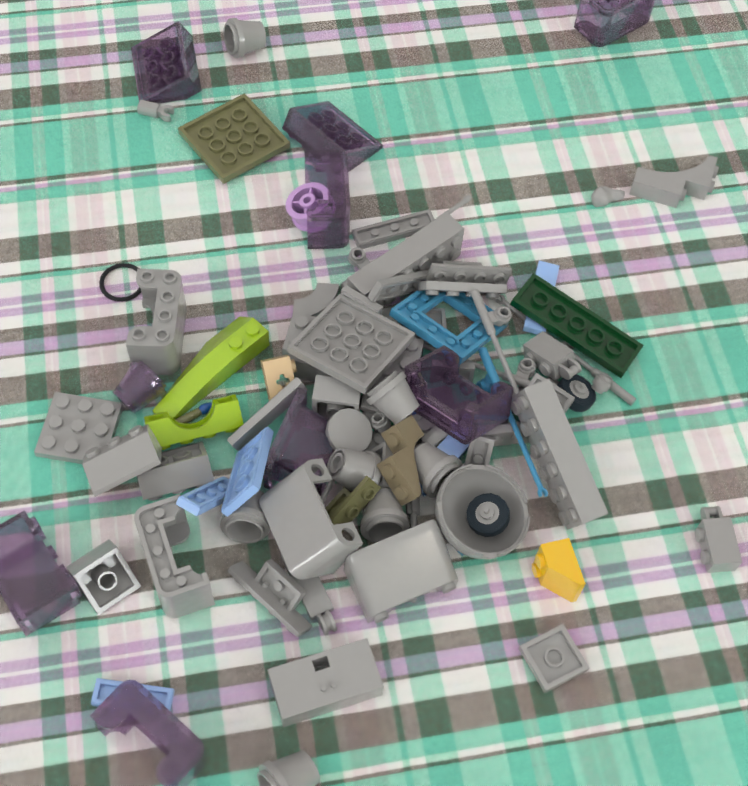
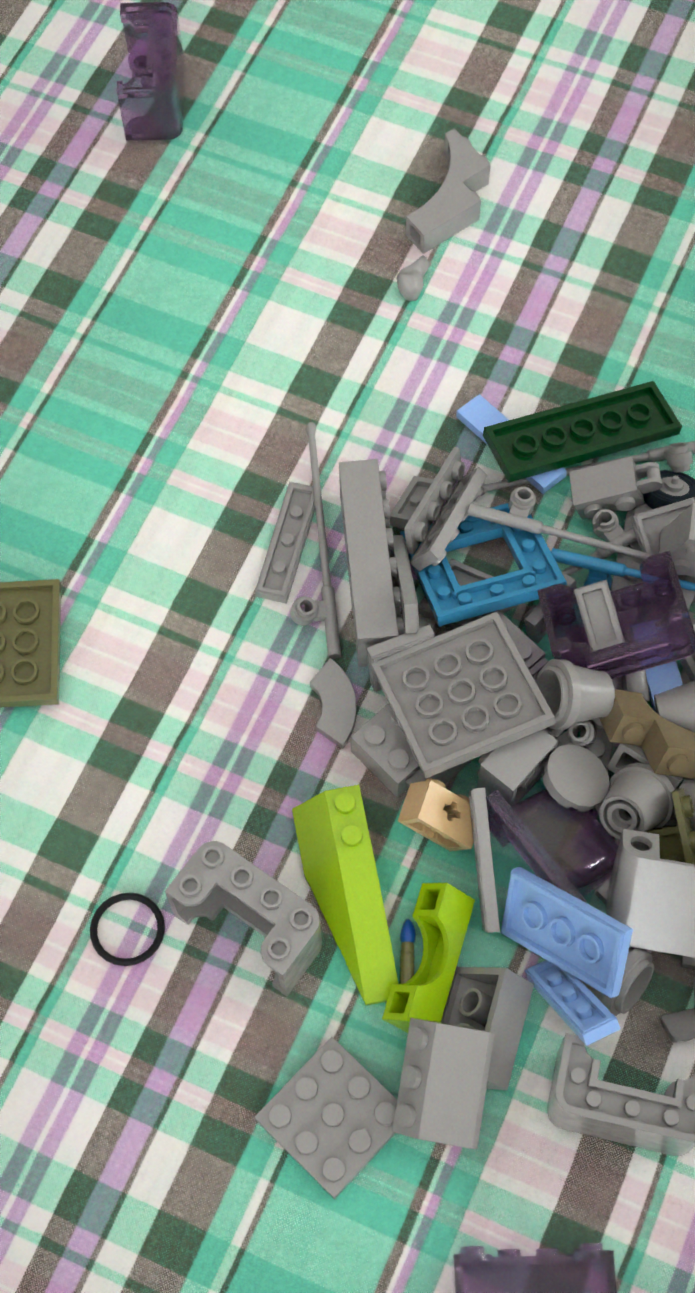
camera: 50 degrees left, 5 degrees up
(103, 576) = (584, 1204): light grey slope -> none
(139, 387) = (330, 999): clear purple piece -> none
(304, 198) = (208, 623): lavender wheel -> none
(327, 128) = (85, 524): clear purple slope -> none
(330, 221) = (184, 562): clear purple windscreen -> none
(456, 386) = (599, 615): none -> light grey tile

